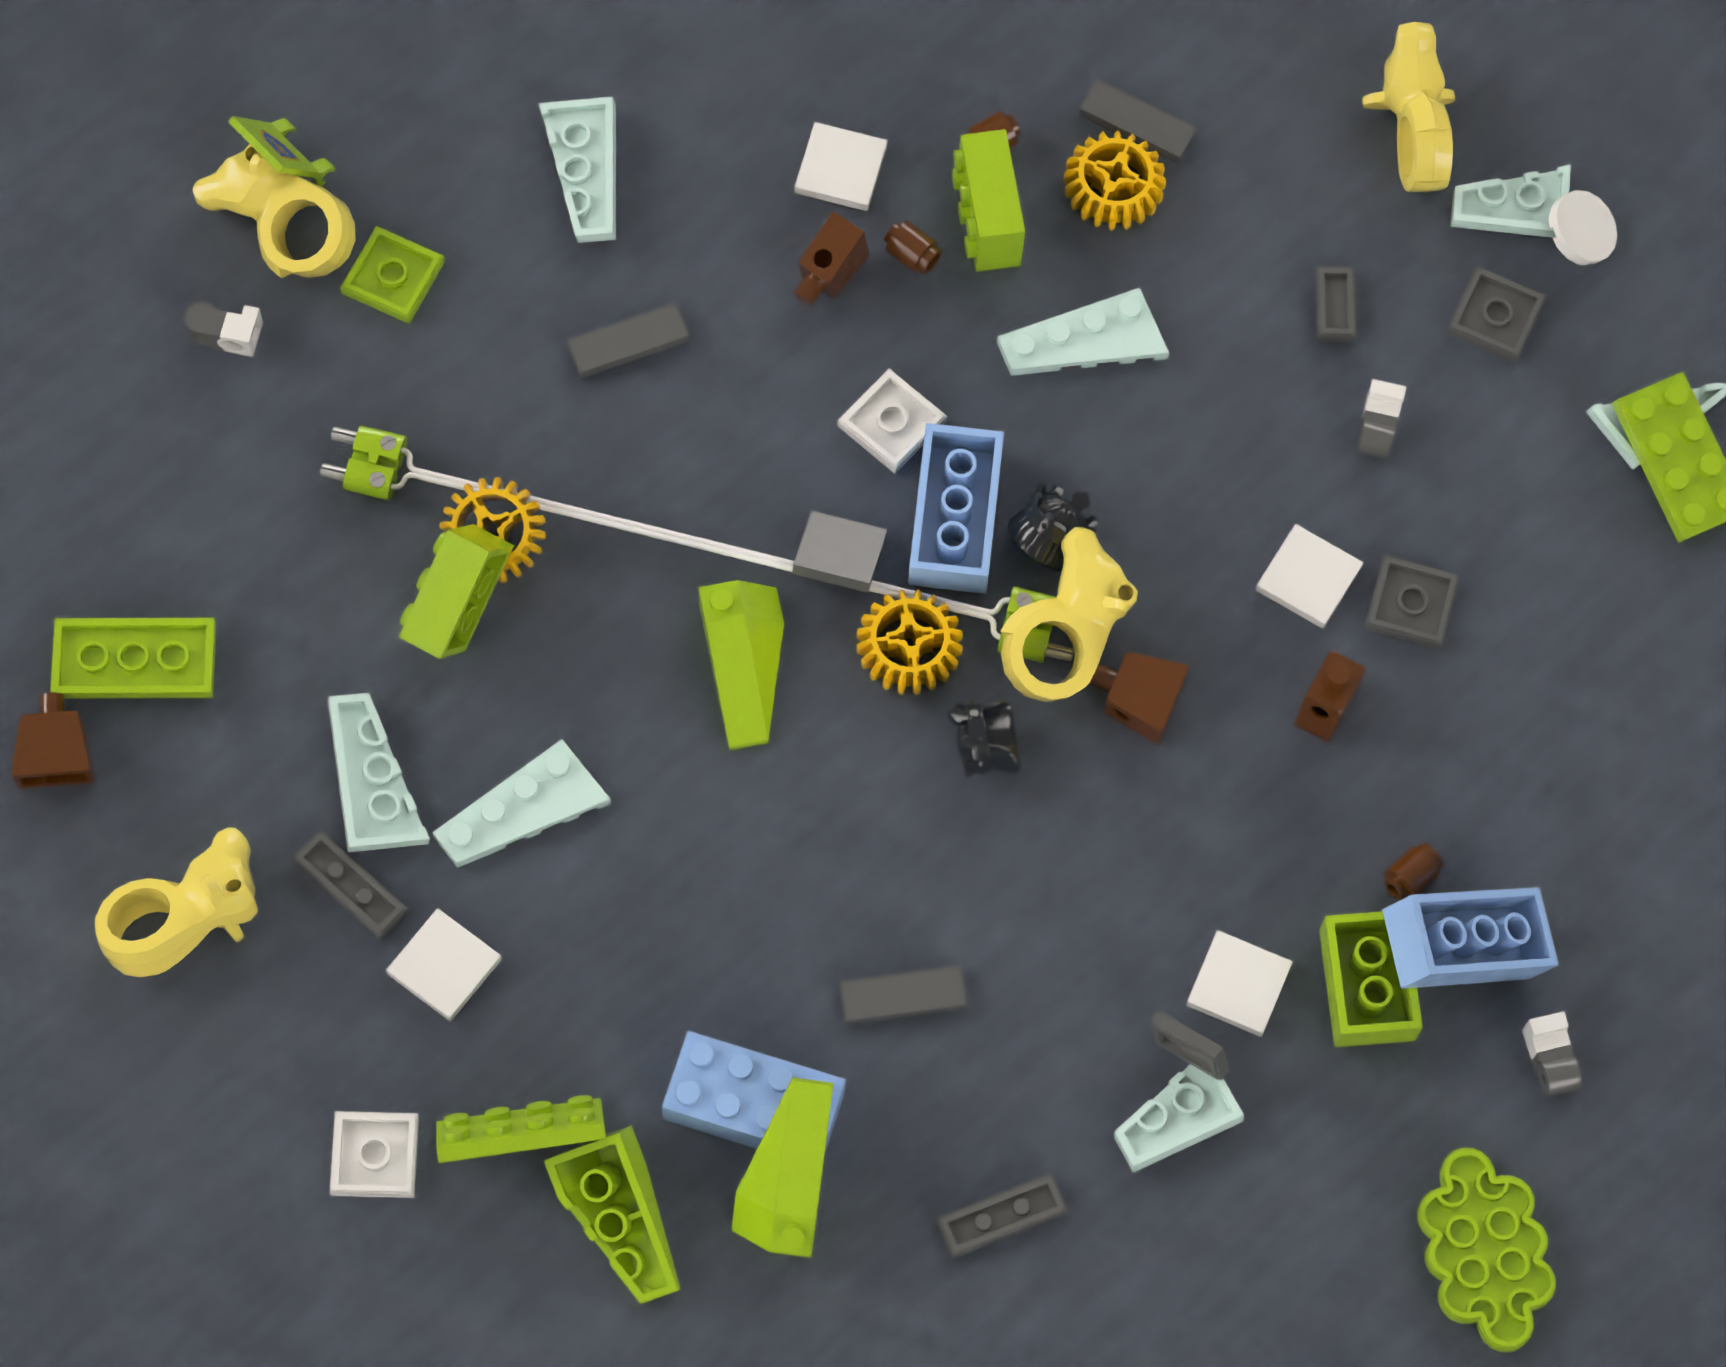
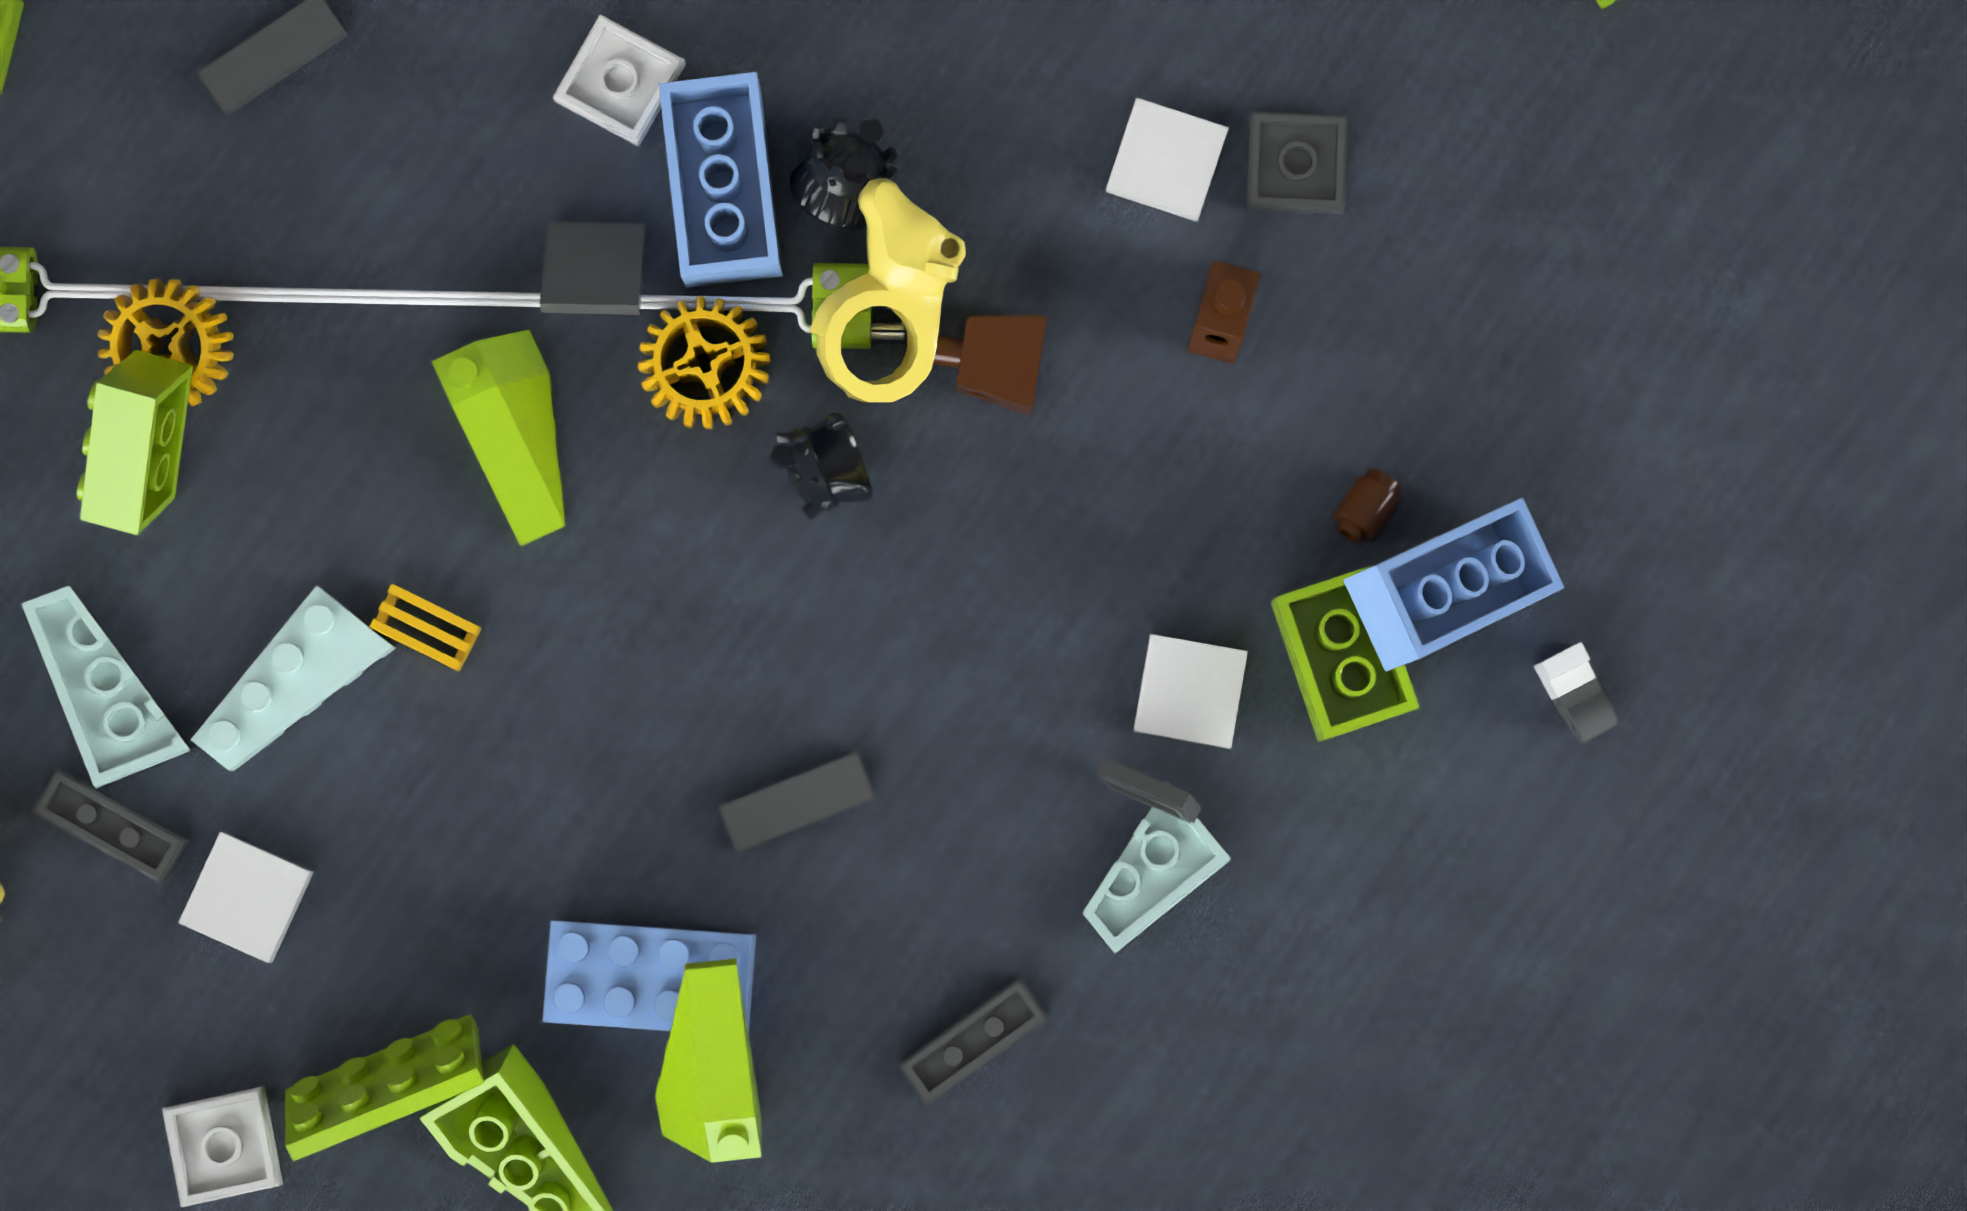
camera: 10 degrees left, 15 degrees up
(665, 793) = (388, 609): none -> yellow tile
(1486, 1249) = (1545, 946): lime plate -> none

